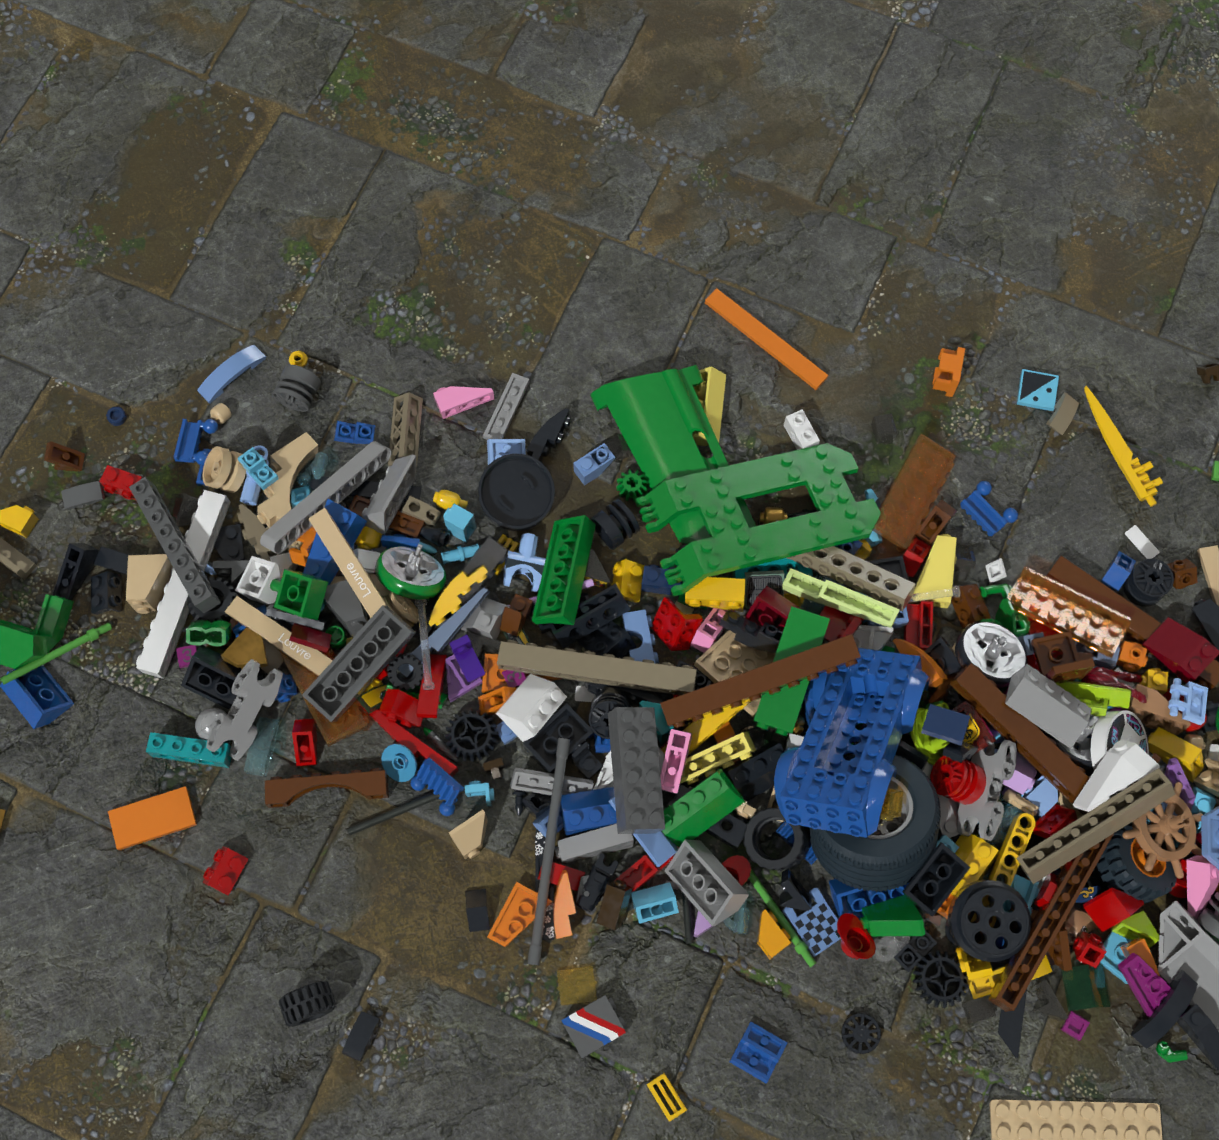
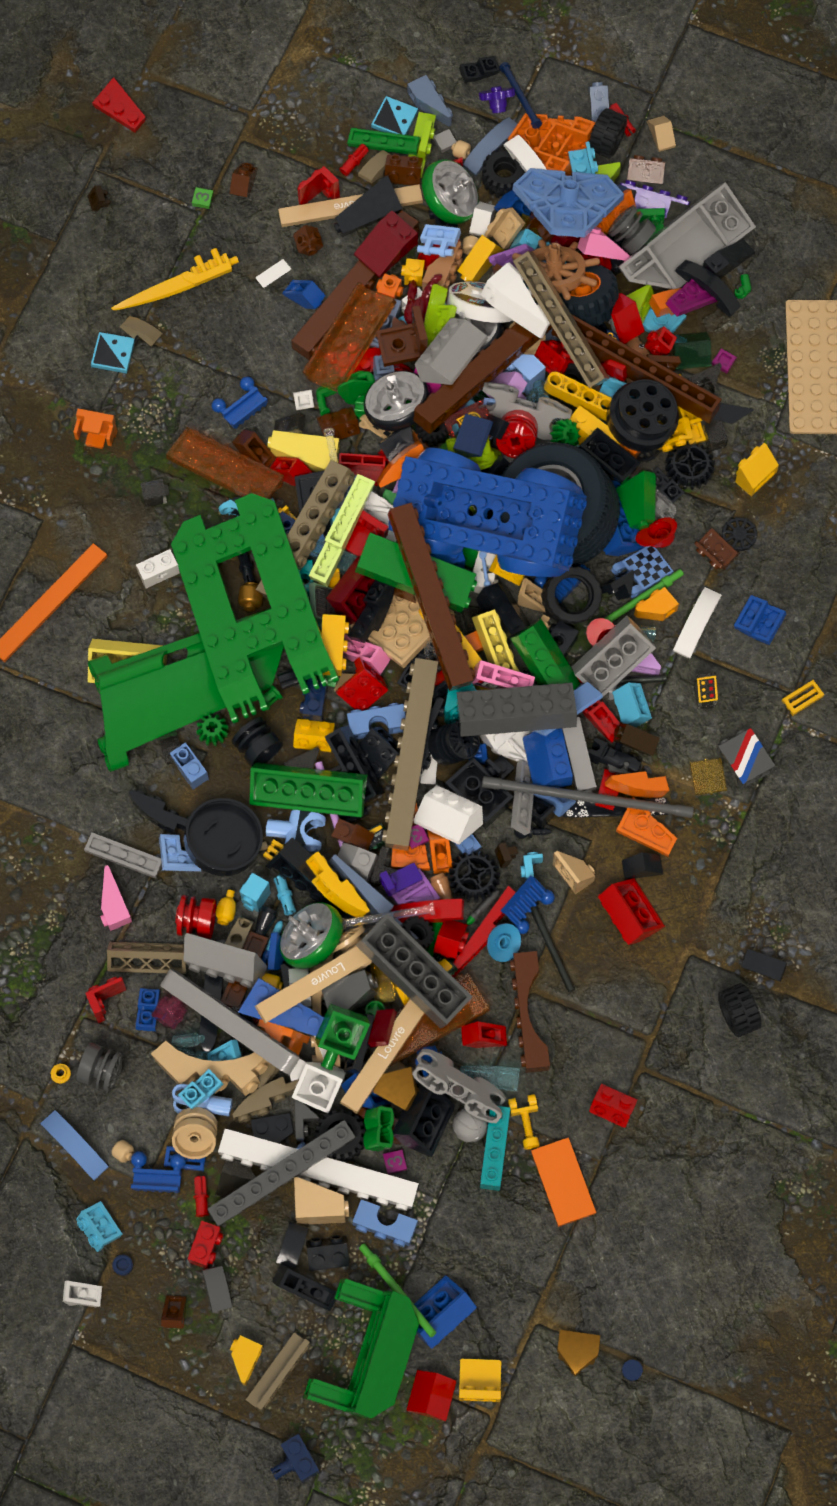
camera: 90 degrees left, 0 degrees up
(89, 378) = (82, 1294): none -> white slope
(131, 629) = (400, 1231): none -> medium blue arch
(152, 394) = (98, 1226): none -> medium azure bracket
(171, 481) = (201, 1196): none -> red axle
(194, 785) = (530, 1142): none -> yellow bar
(346, 447) = (169, 1012): none -> clear pink brick
(357, 383) = (99, 993): none -> red bracket
(427, 895) = (630, 911): none -> red slope
(437, 469) = (196, 917): none -> red wheel
(462, 702) = (441, 886): none -> medium nougat cone
(666, 539) = (272, 696): none -> green bush
(668, 984) = (706, 691): none -> clear smoke slope
(755, 980) = (697, 622): none -> white slope
(839, 1004) = (716, 549): none -> reddish brown bracket
(937, 1054) = (756, 469): none -> yellow slope
(953, 835) = (565, 432): none -> green gear
(1020, 802) = (534, 385): tan piece -> none
(1148, 582) = (324, 273): black wheel -> none

